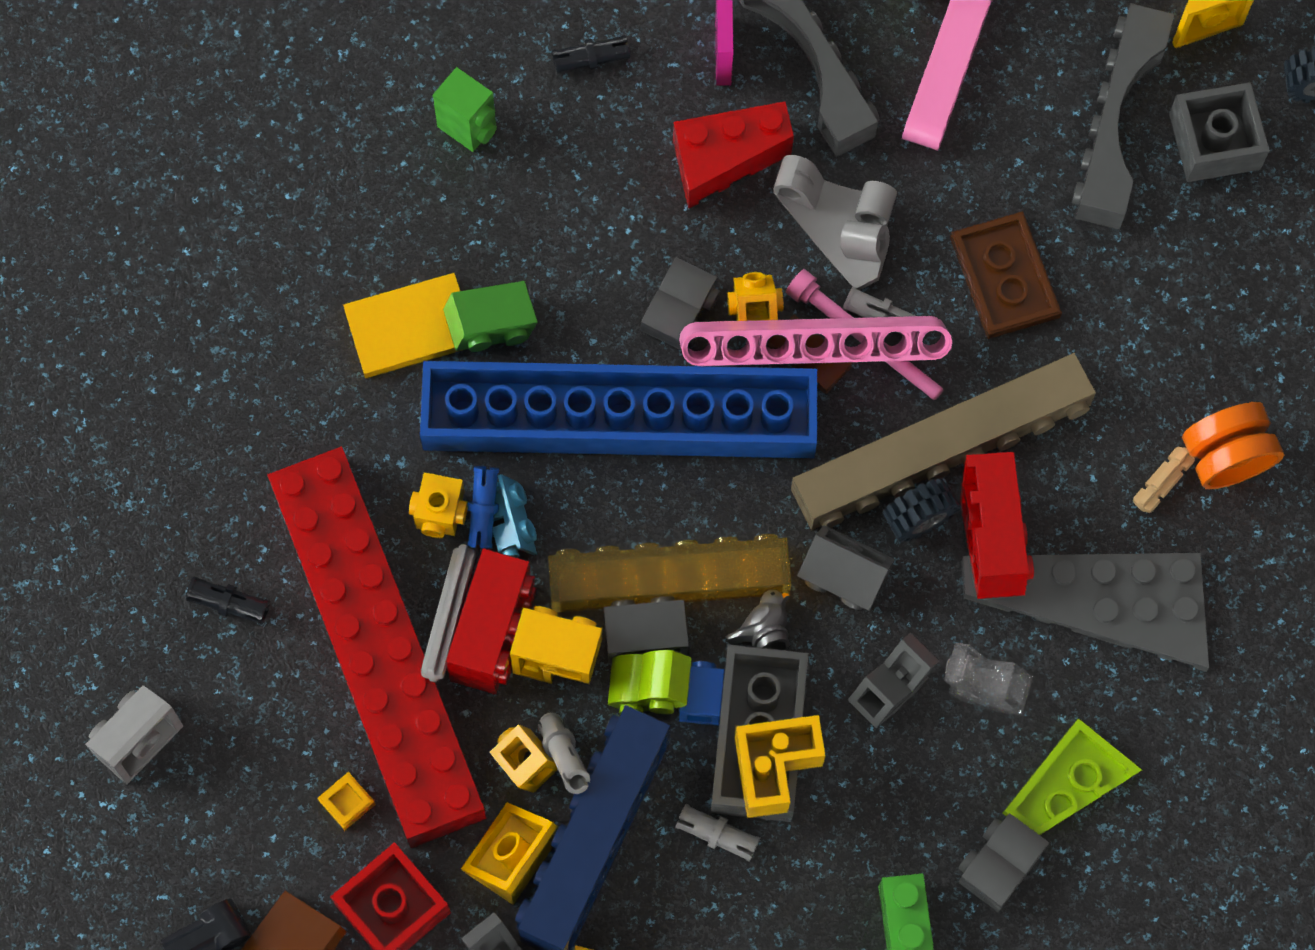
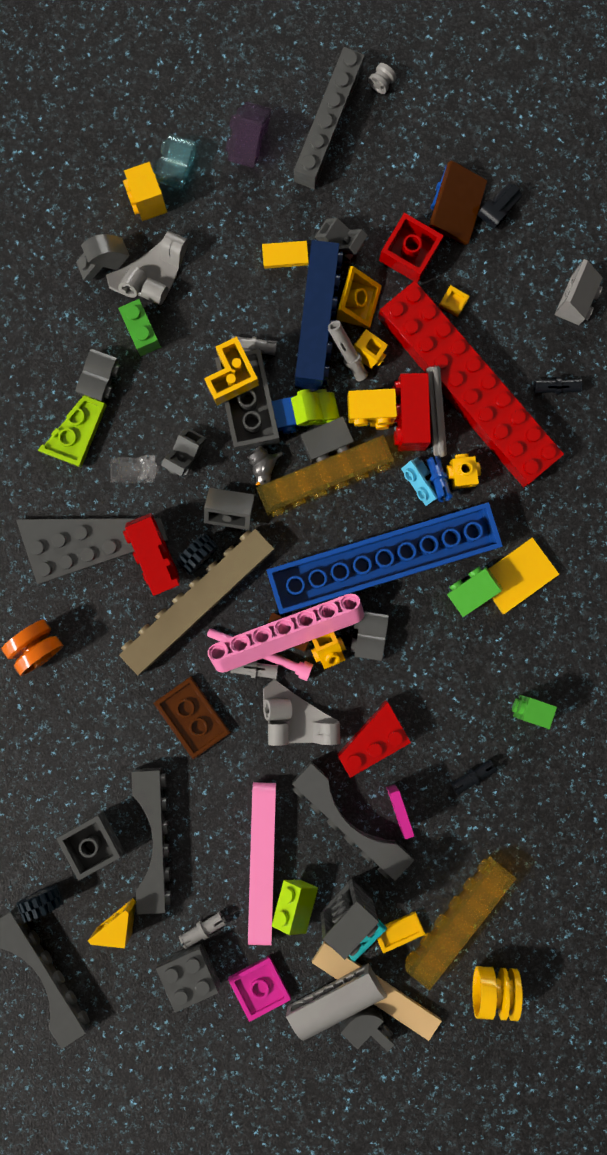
camera: 155 degrees right, 15 degrees up
(1163, 480) = (69, 621): tan axle -> none

